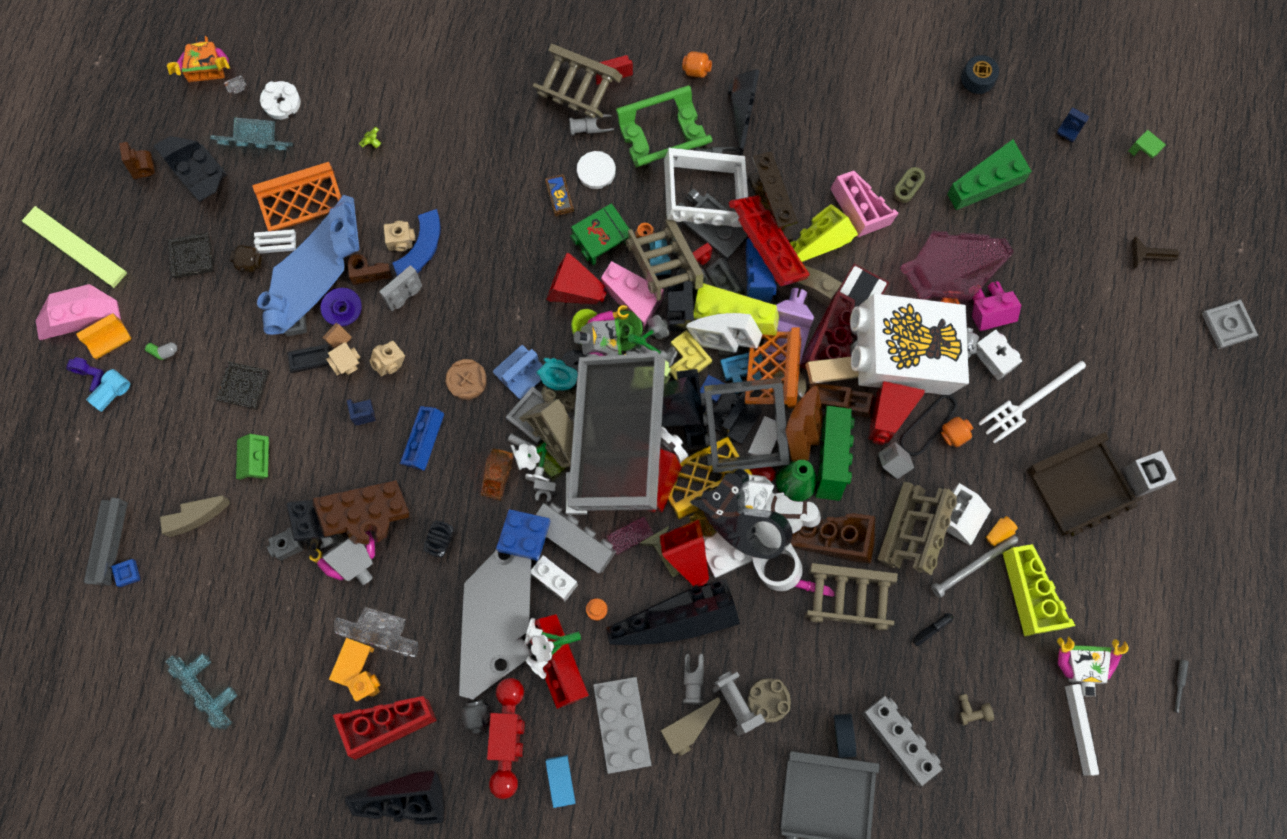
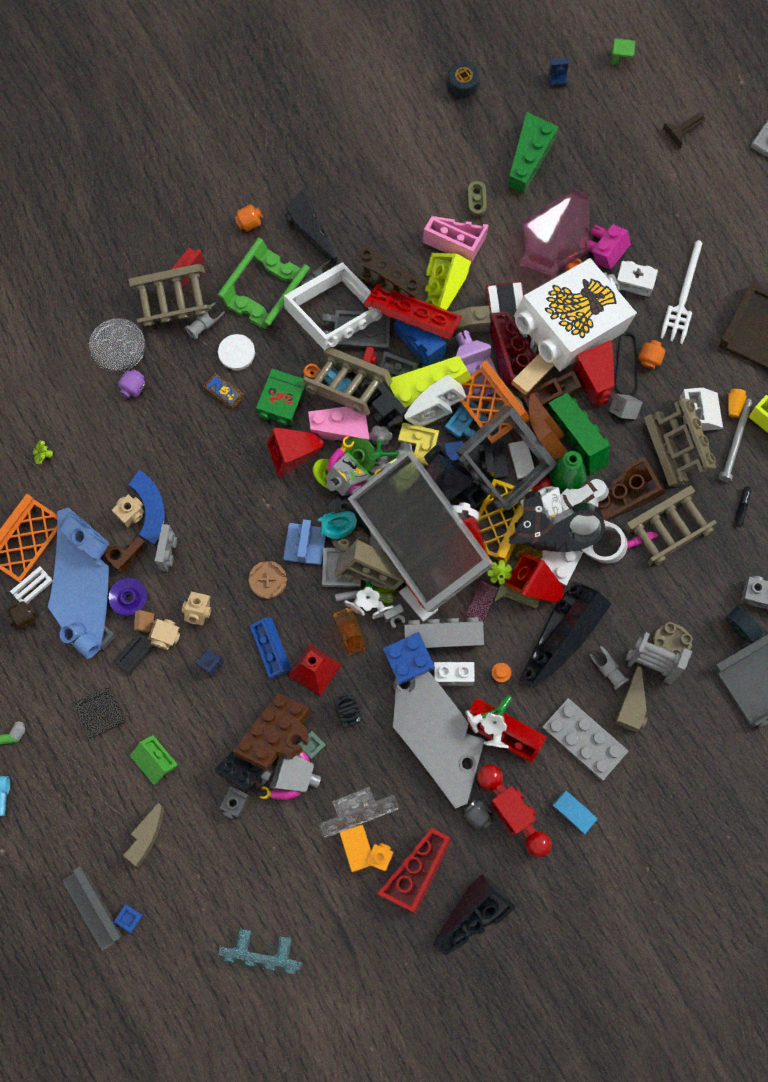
camera: 35 degrees left, 0 degrees up
(389, 547) = (314, 746): none -> sand green tile
(442, 484) = (314, 670): none -> red slope
(488, 134) = (131, 383): none -> medium lavender head
(503, 94) = (117, 345): none -> clear tile
(663, 520) = (499, 572): none -> lime plant

